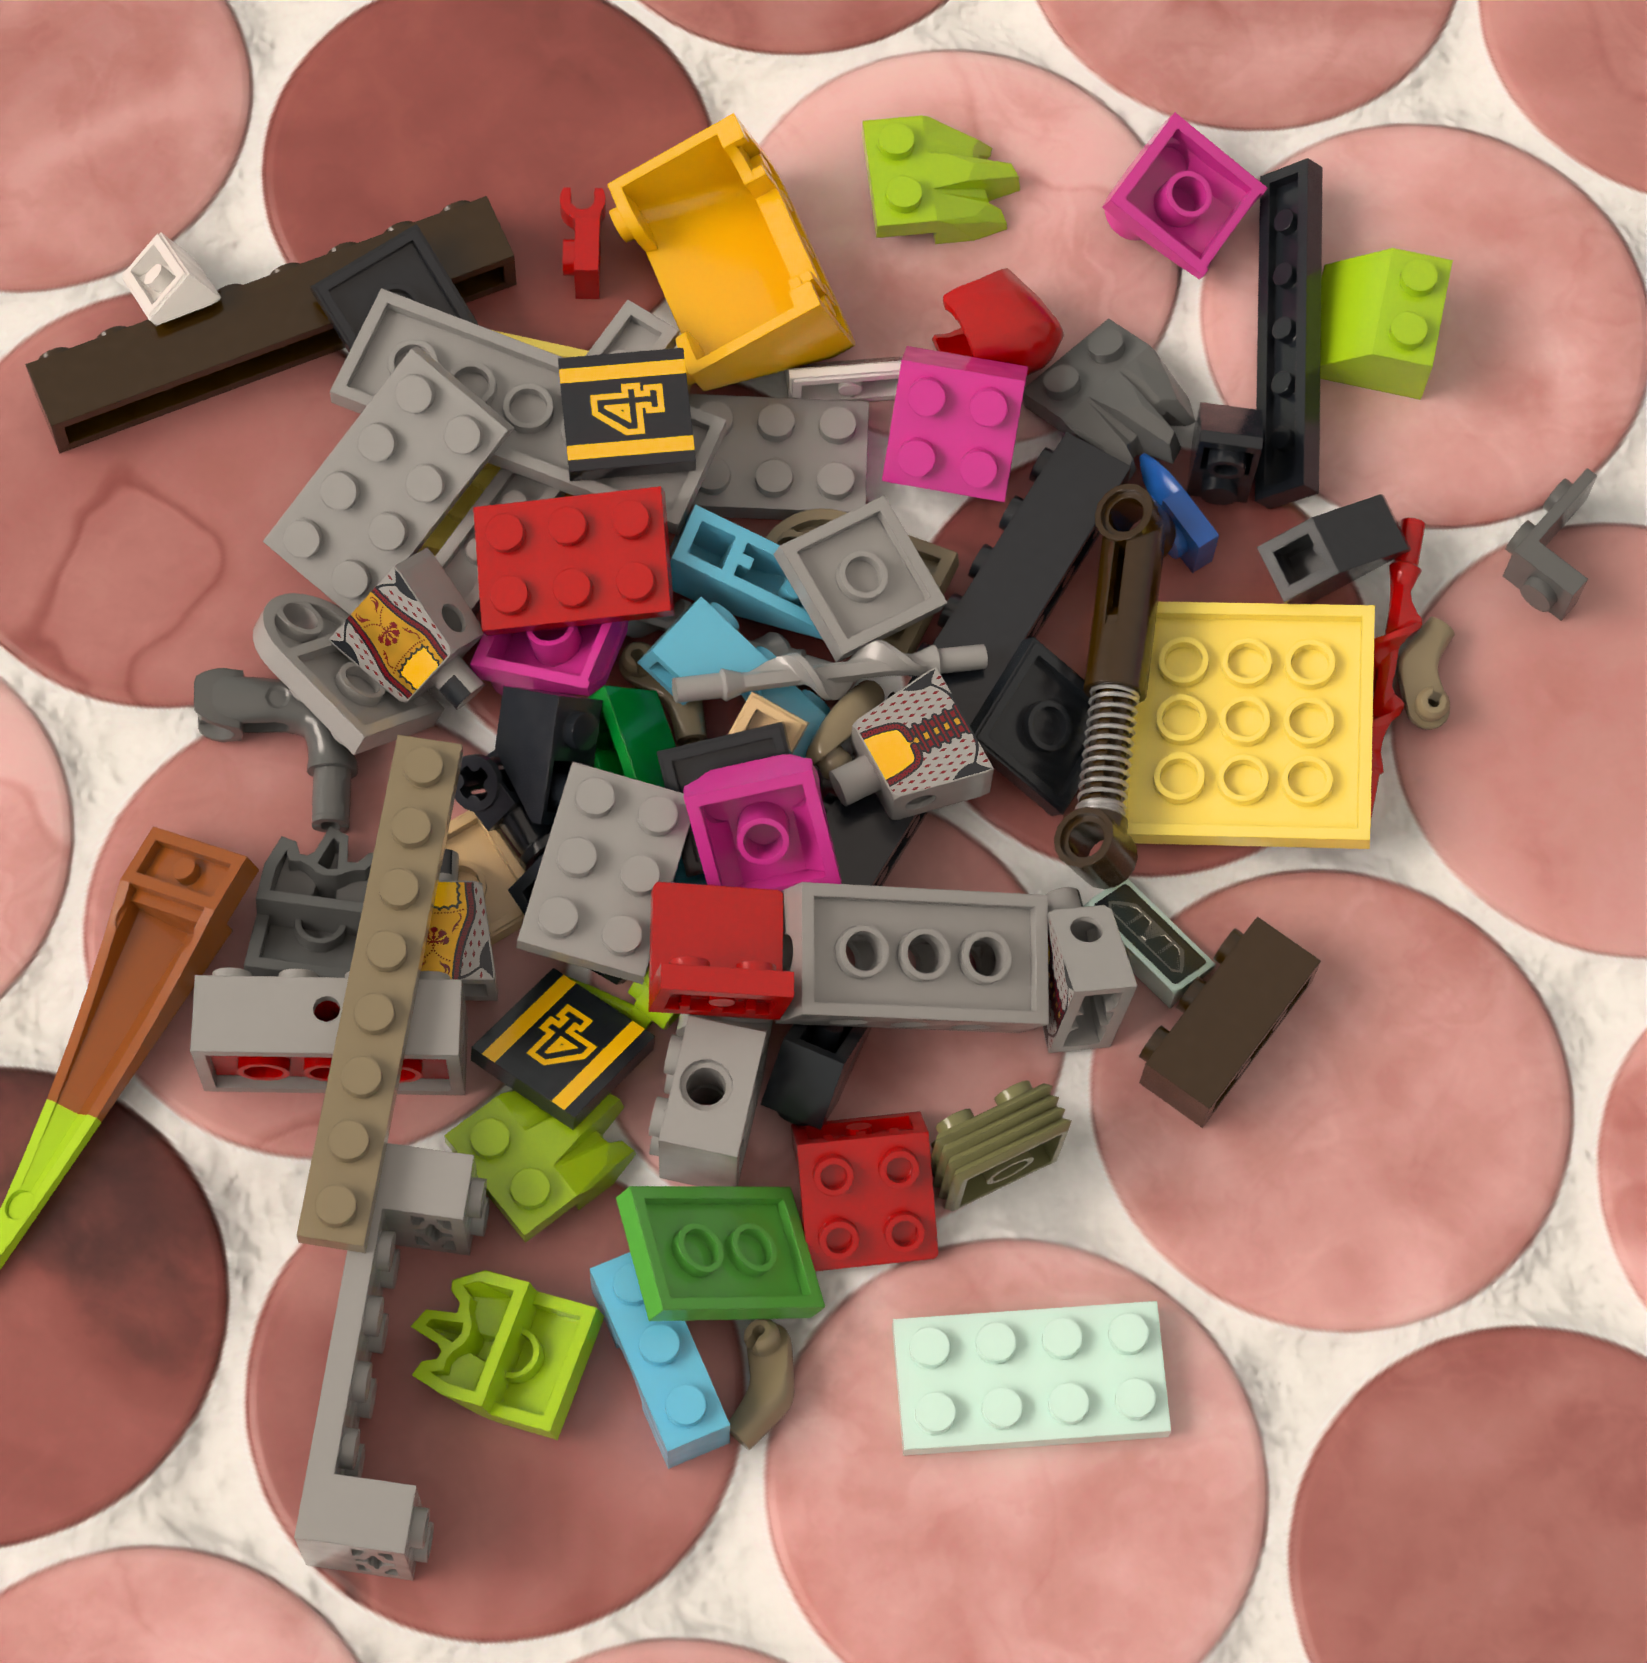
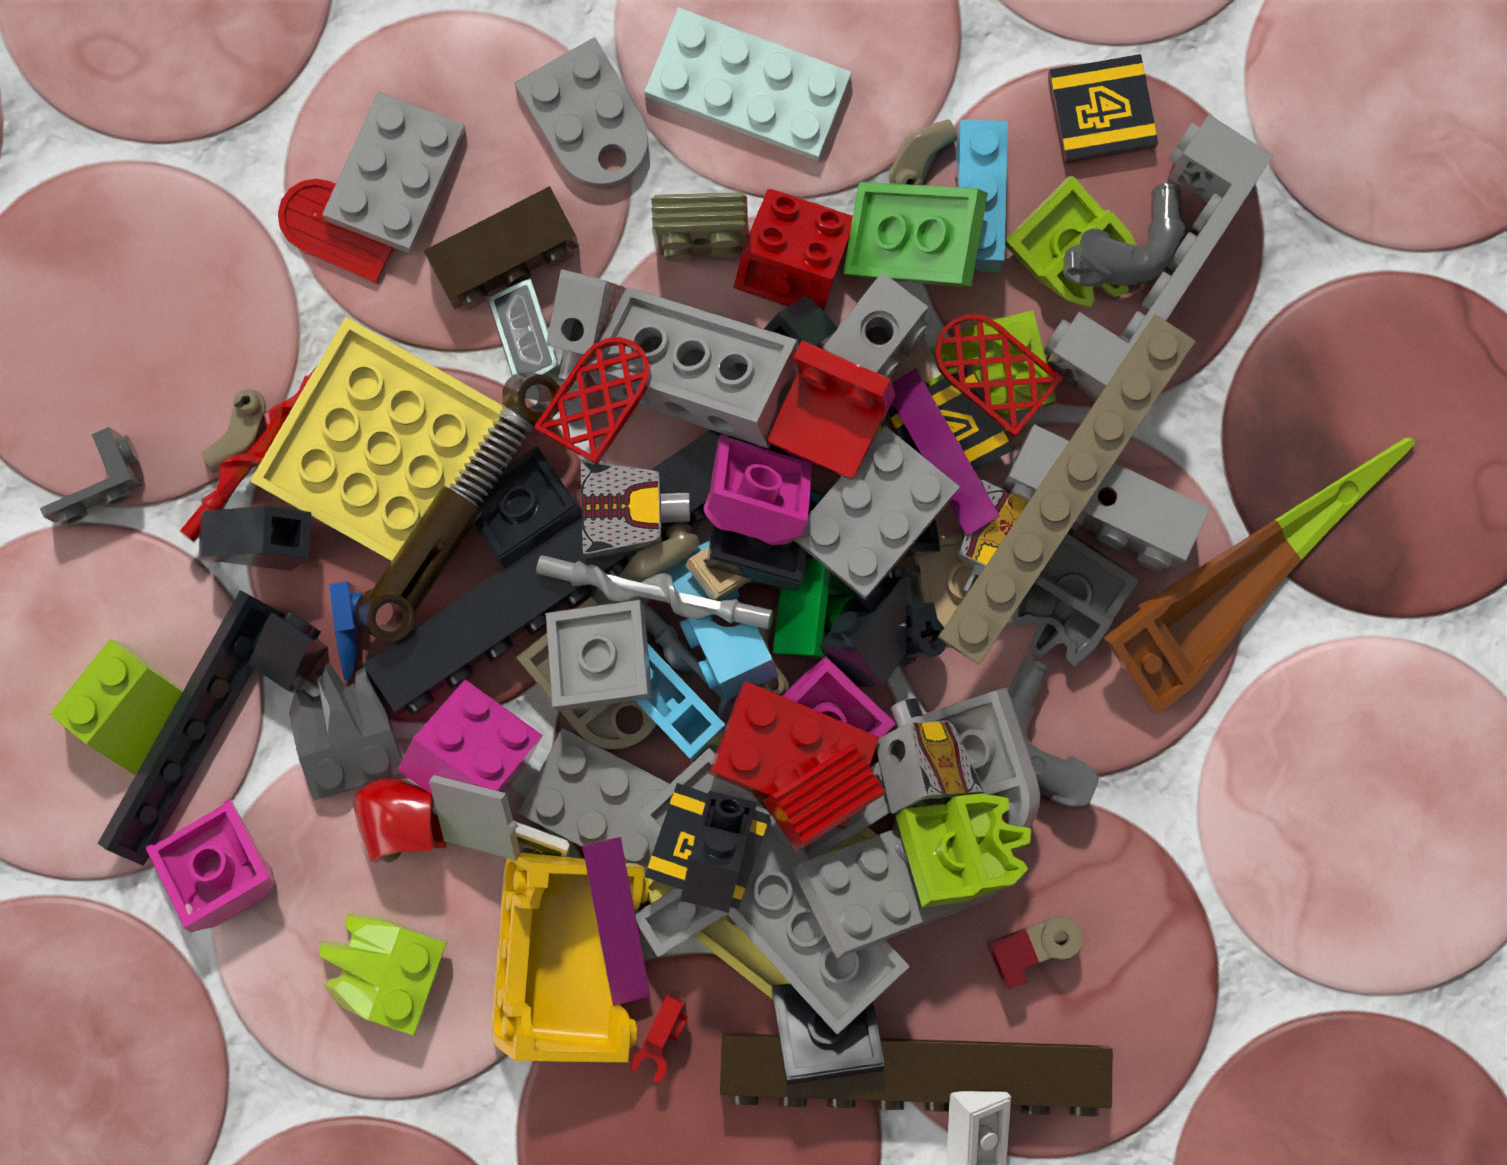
camera: 150 degrees left, 15 degrees up
(194, 511) = (1043, 940): none -> leg
(324, 544) = (962, 848): none -> lime plate
(460, 1321) = (1118, 263): none -> dark grey piece
(517, 506) = (823, 796): none -> red brick
(551, 1559) = (1103, 108): none -> black tile
(561, 1000) = (942, 450): none -> magenta sticker
(568, 1084) = (963, 387): none -> red window
(610, 396) = (718, 851): none -> black slope
(694, 312) = (616, 920): none -> magenta sticker
(911, 344) = (475, 817): none -> light grey piece
(980, 778) = (577, 374): none -> red window
(1217, 1245) = (586, 113): none -> light grey plate
(1412, 1059) = (394, 172): none -> light grey plate
(1442, 971) = (306, 229): none -> red window

